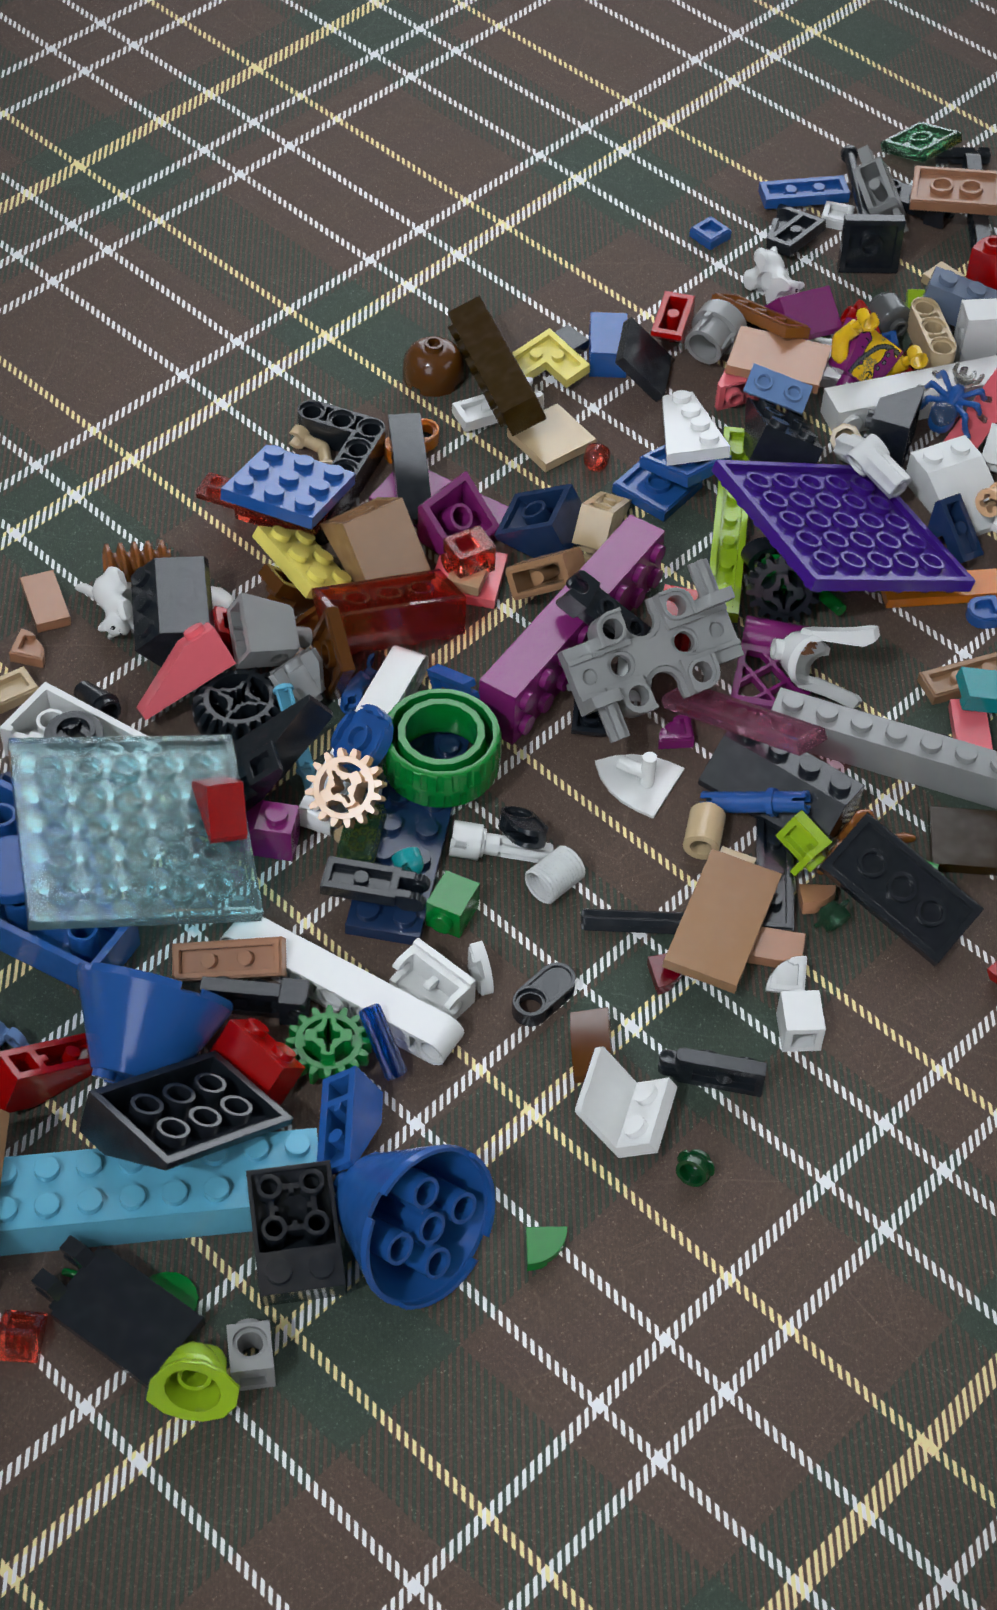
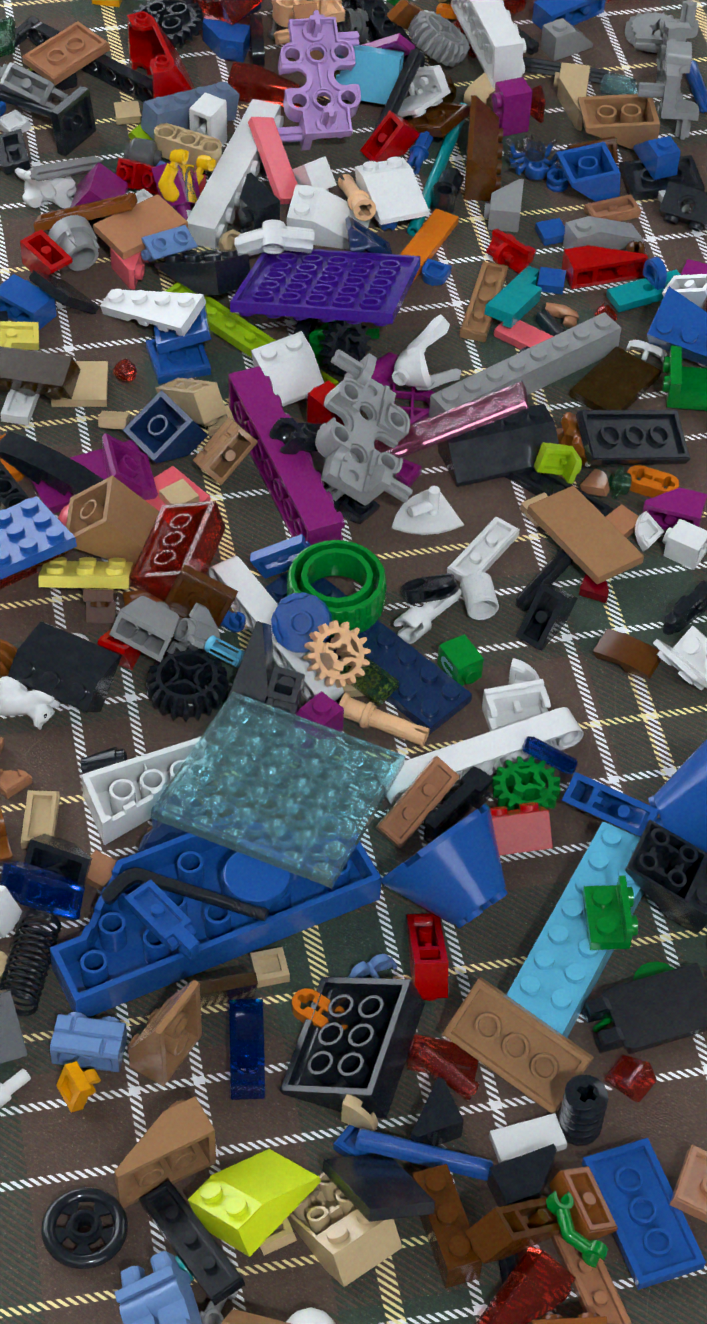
camera: 55 degrees left, 0 degrees up
(72, 723) = (141, 777): black gear -> none
(171, 1194) = (609, 915): none -> green bracket
(179, 1113) = (555, 883): black slope -> none
(188, 666) = (136, 692): coral slope -> none
(222, 808) = (302, 724): red slope -> none
(314, 852) = (369, 716): none -> light nougat pin
(374, 883) = (418, 689): black hinge -> none
(409, 859) = (414, 660): teal hinge -> none
(468, 552) = (172, 484): clear red brick -> none
(522, 479) = (113, 419): none -> tan tile
(549, 988) = (563, 651): piece -> none
(583, 943) = (546, 615): none -> black slope
(630, 851) = (484, 549): none -> white tile
(697, 541) = (290, 367): none -> white slope
(704, 830) = (503, 503): tan brick -> none
(769, 801) = (516, 456): blue pin -> none
(799, 271) = (63, 168): none -> light grey axle
(844, 988) = (676, 505): none -> magenta slope
(860, 949) = (651, 481): none -> orange beam
(951, 402) = (260, 168): animal -> none

